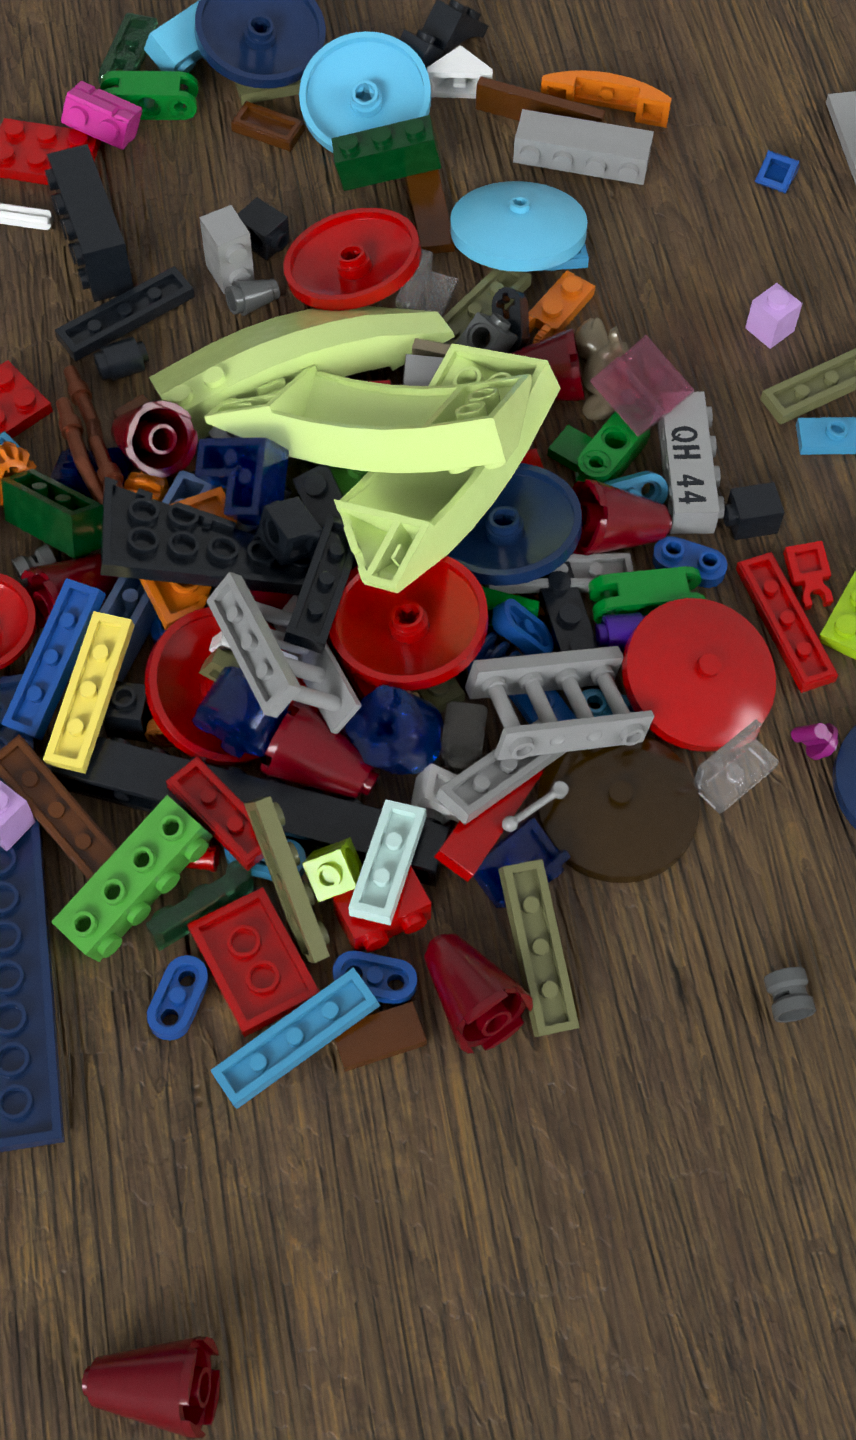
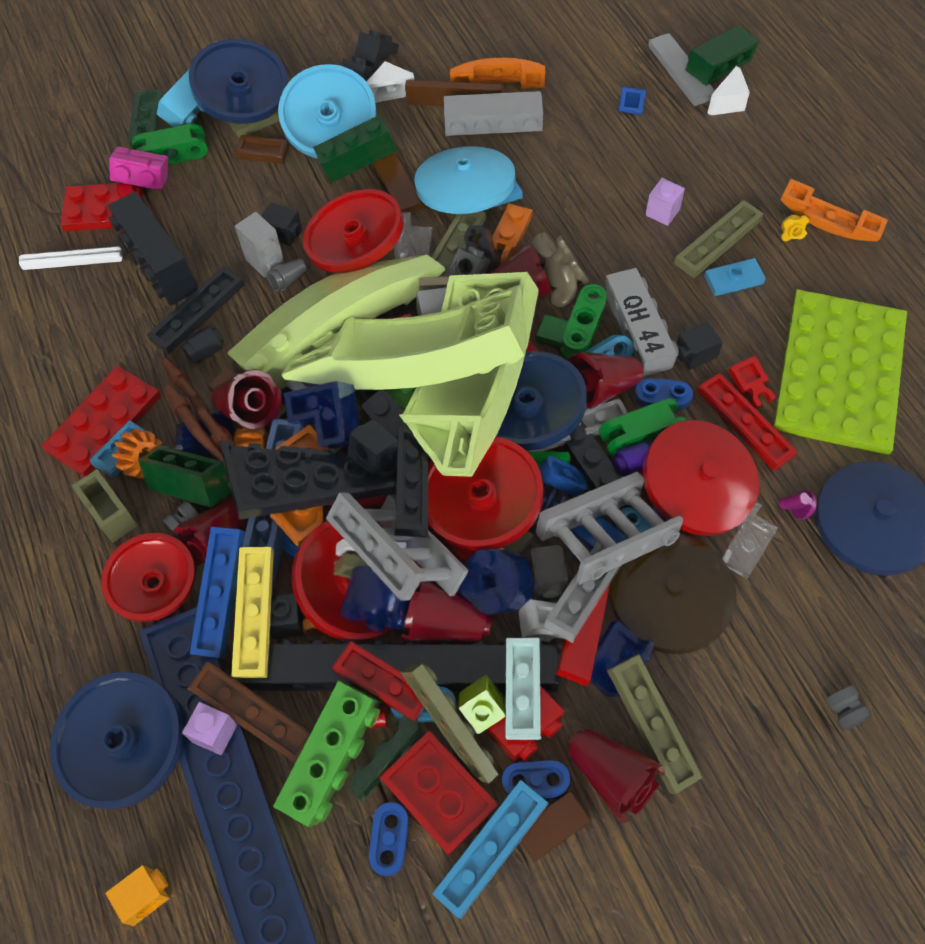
camera: 10 degrees left, 0 degrees up
(558, 790) = (628, 594): light grey hinge -> none
(642, 386) = (594, 274): clear pink slope -> none

